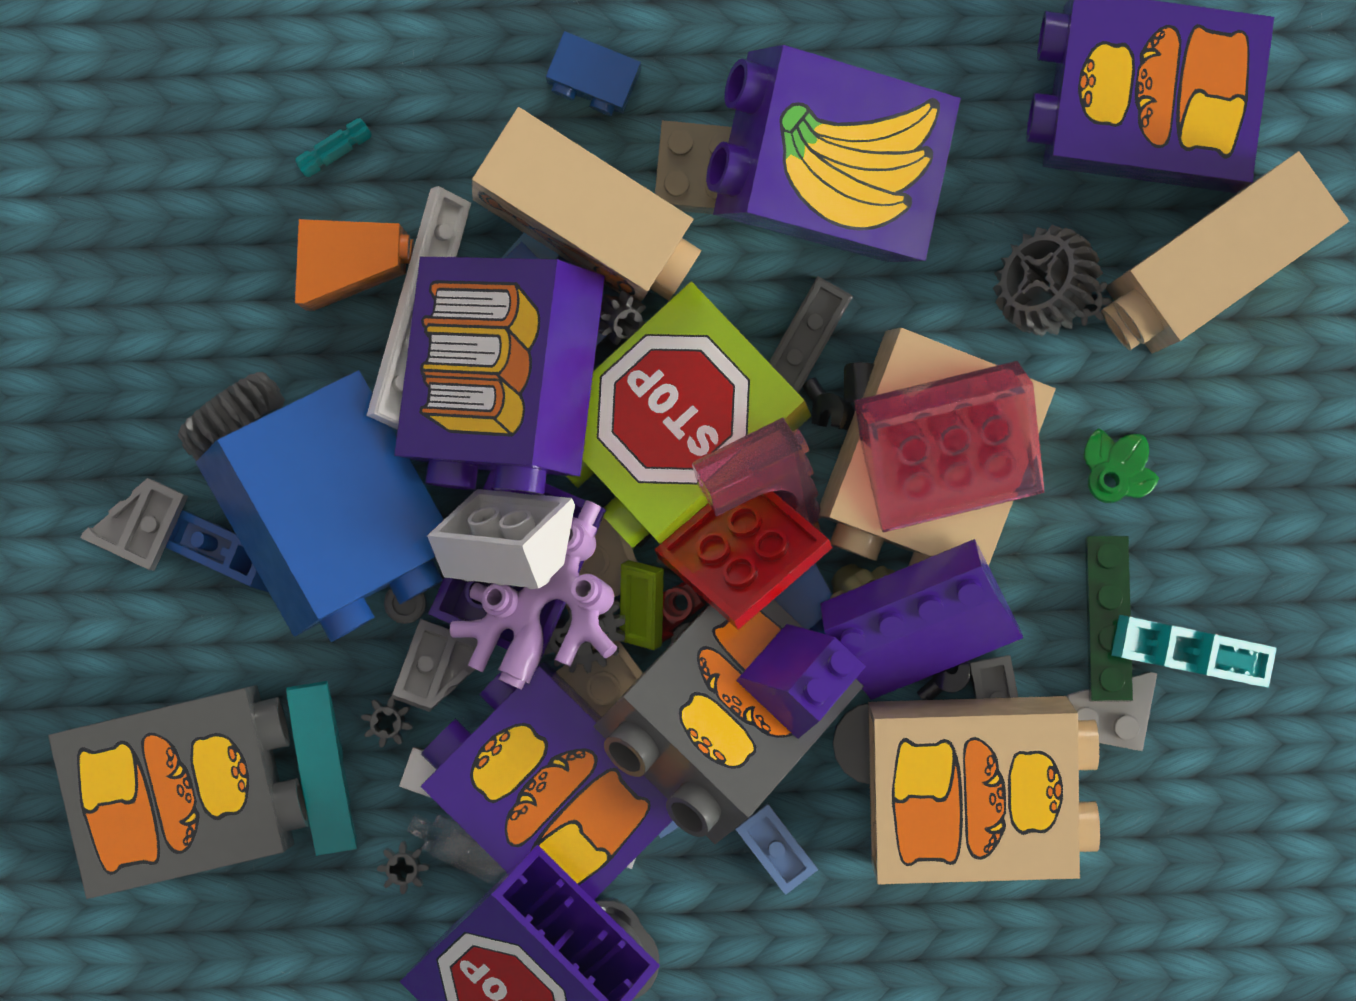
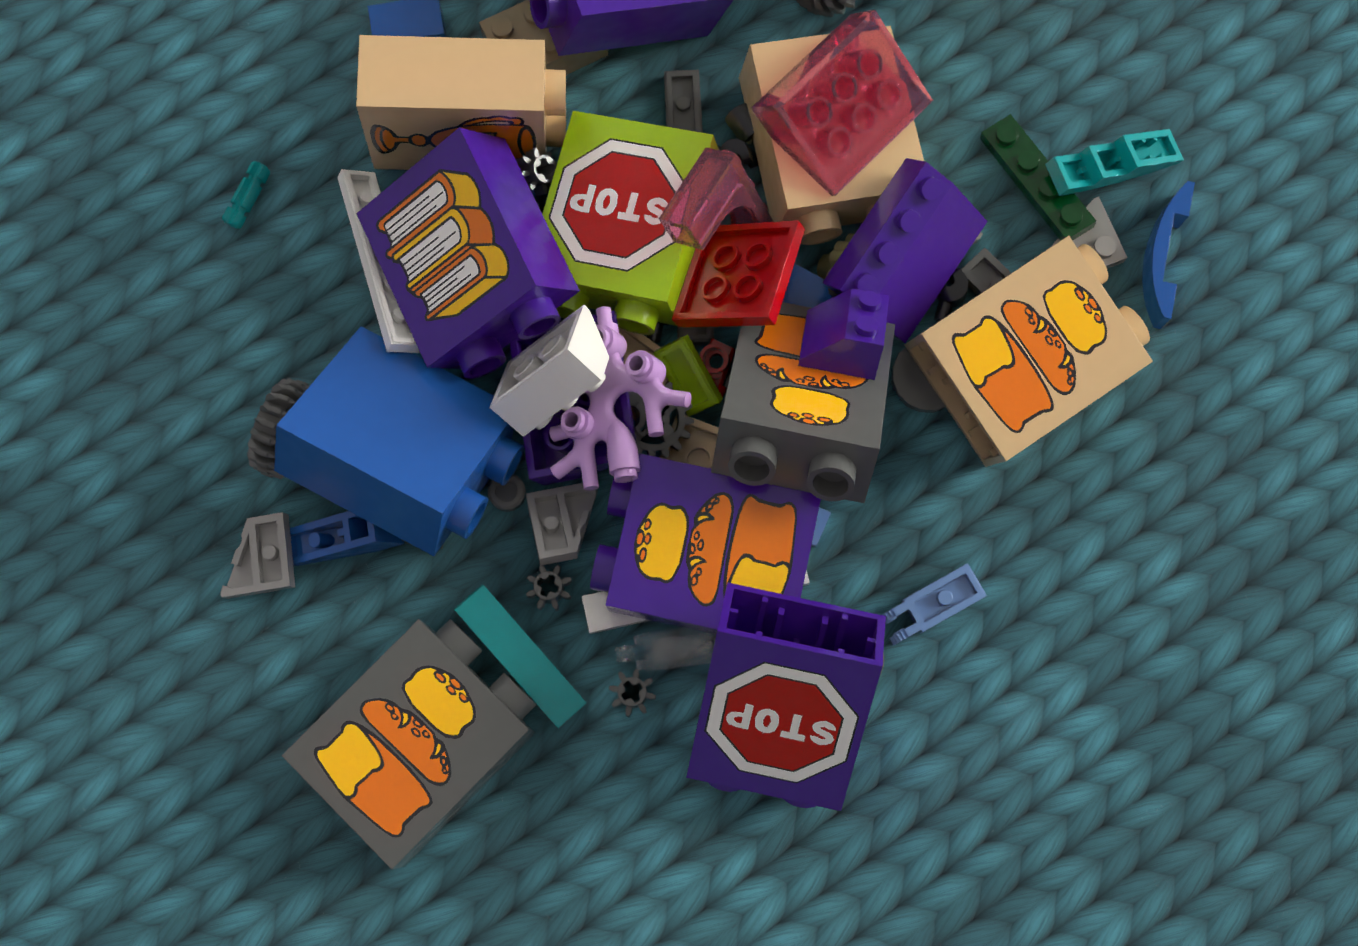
camera: 35 degrees left, 10 degrees down
(346, 259) = (304, 257): orange slope -> none
(736, 962) = (937, 602): none -> medium blue hinge
(776, 849) = (908, 497): medium blue plate -> none
(1121, 461) = (969, 73): green plate -> none
(1144, 809) = (1160, 295): none -> blue slope

